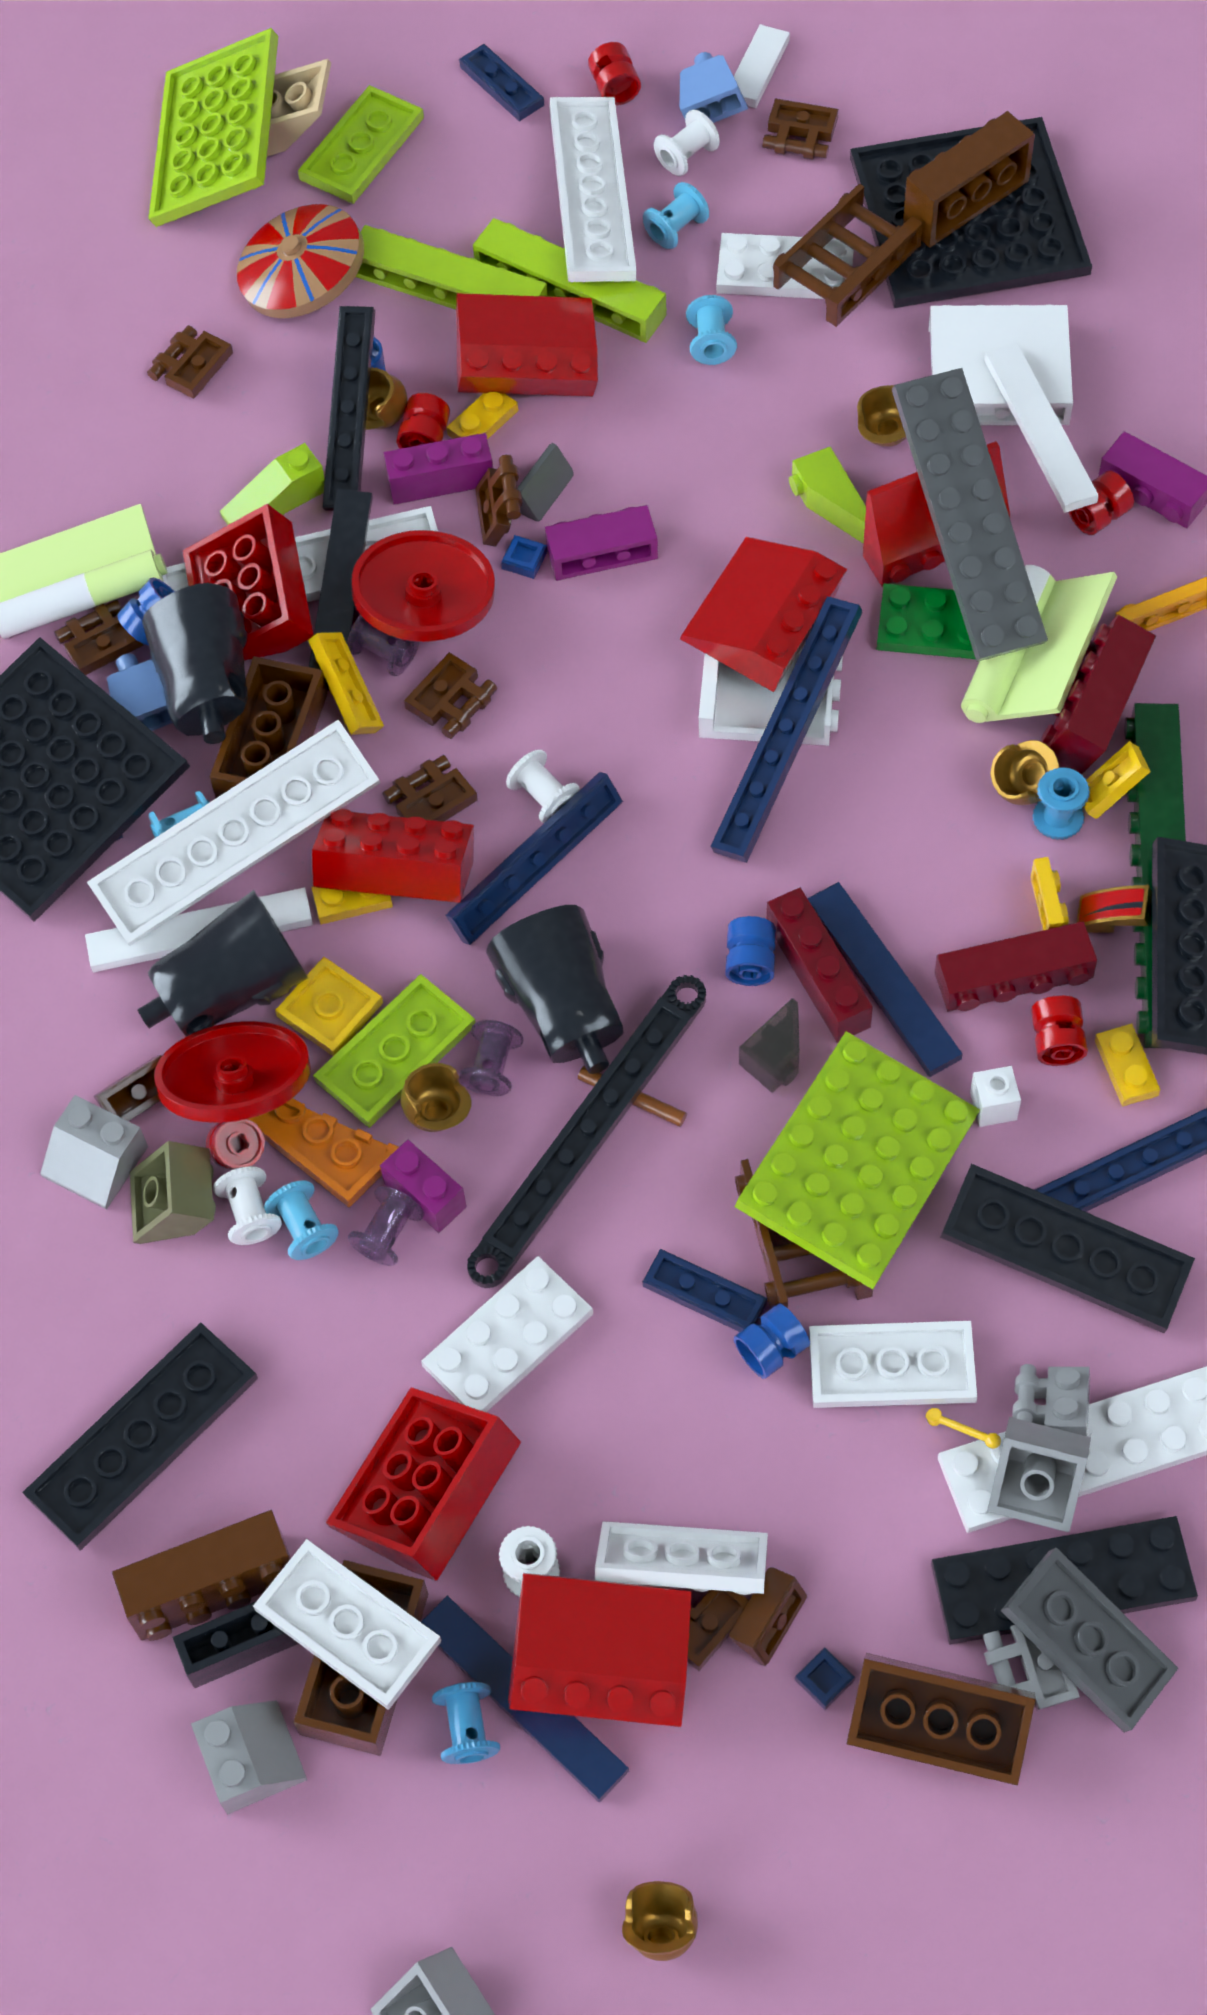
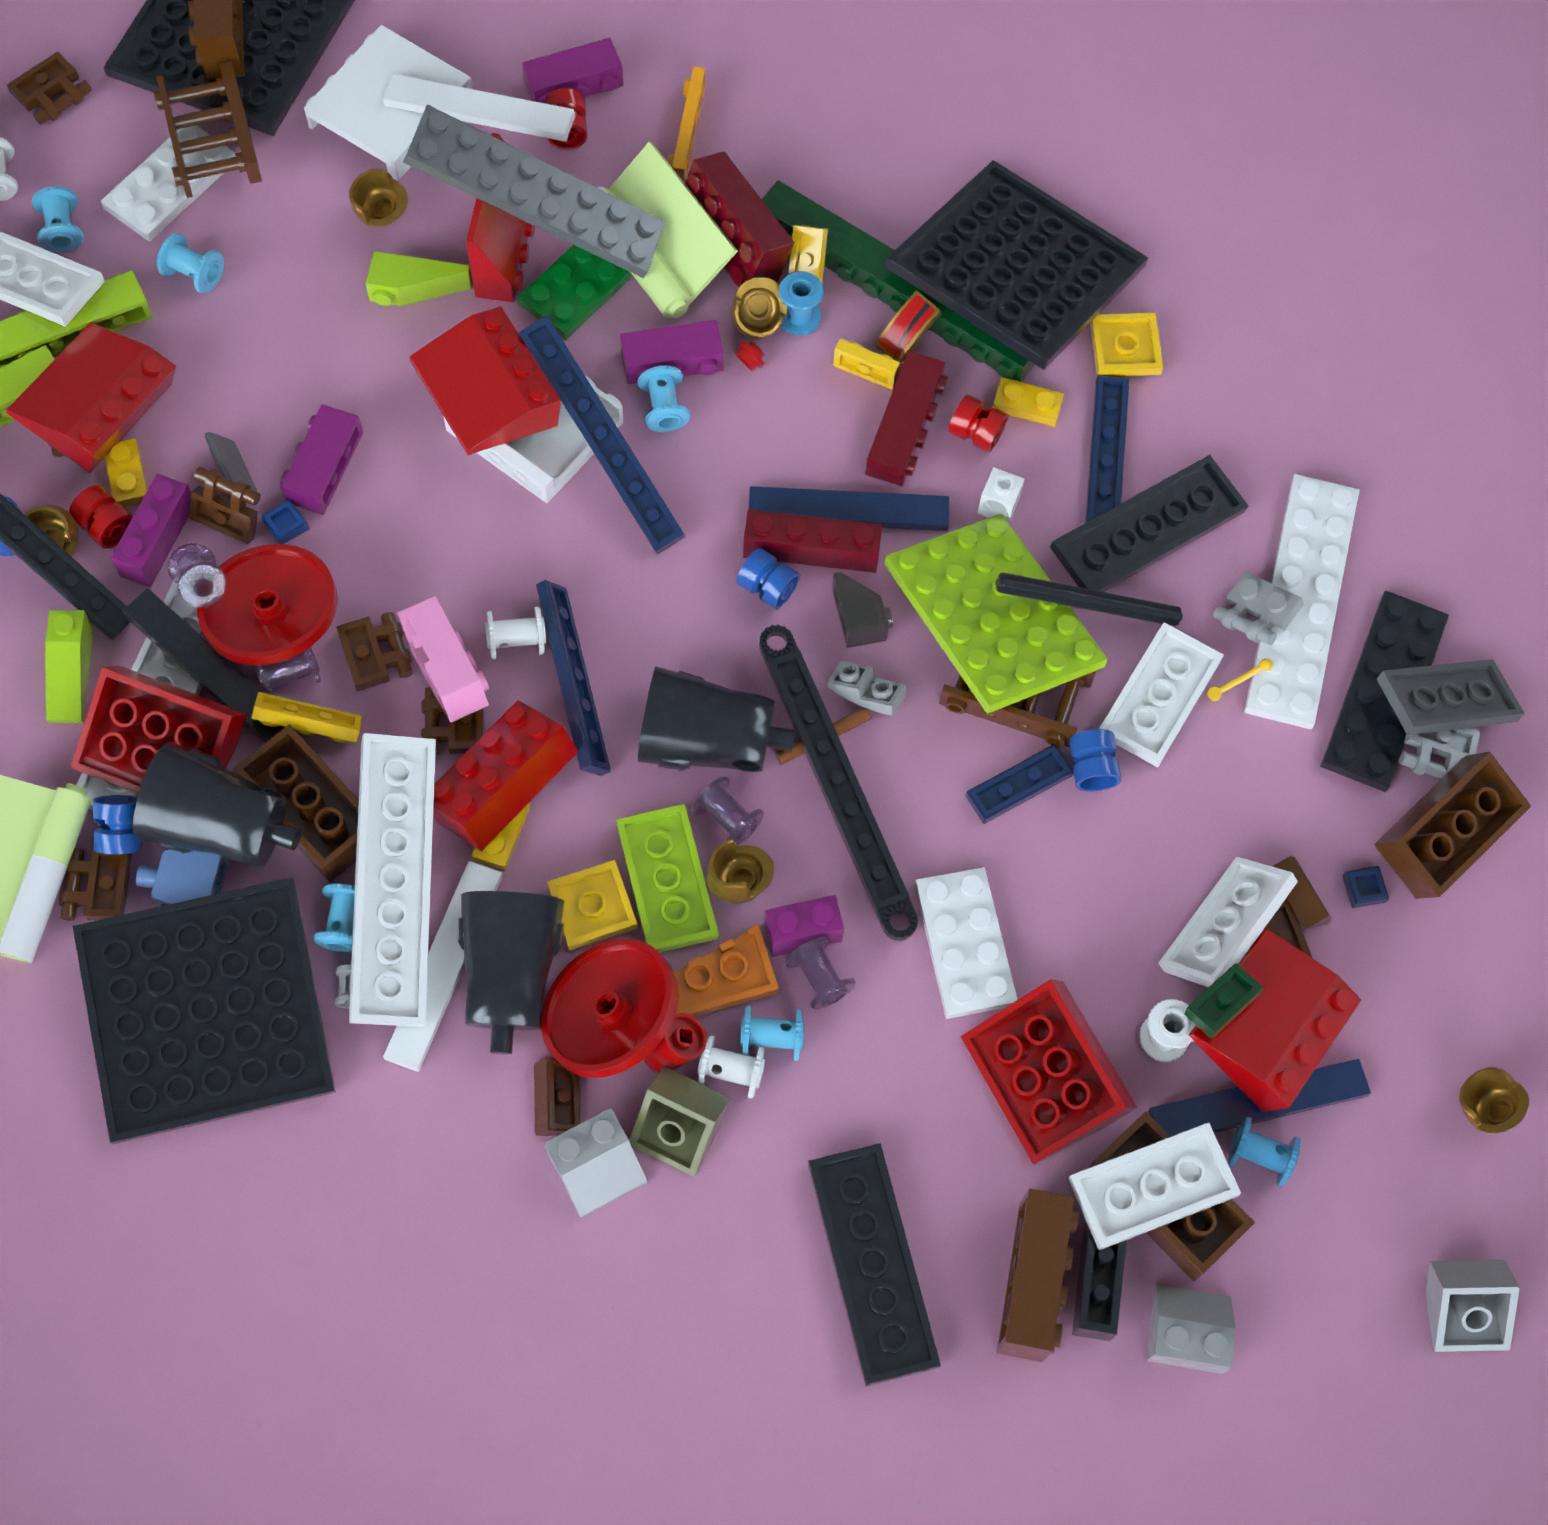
camera: 65 degrees left, 5 degrees up
(401, 520) = (197, 575): none -> clear purple hose
(468, 746) = (443, 659): none -> bright pink wedge
(572, 1580) = (1223, 1000): none -> dark green plate
(702, 1101) = (860, 686): none -> light grey slope
(859, 766) = (661, 385): none -> medium azure hose
(926, 735) = (688, 347): none -> magenta brick
(932, 1233) = (1088, 599): none -> black axle
(976, 799) = (750, 355): none -> red plate
(1039, 1474) = (1314, 648): light grey slope -> none

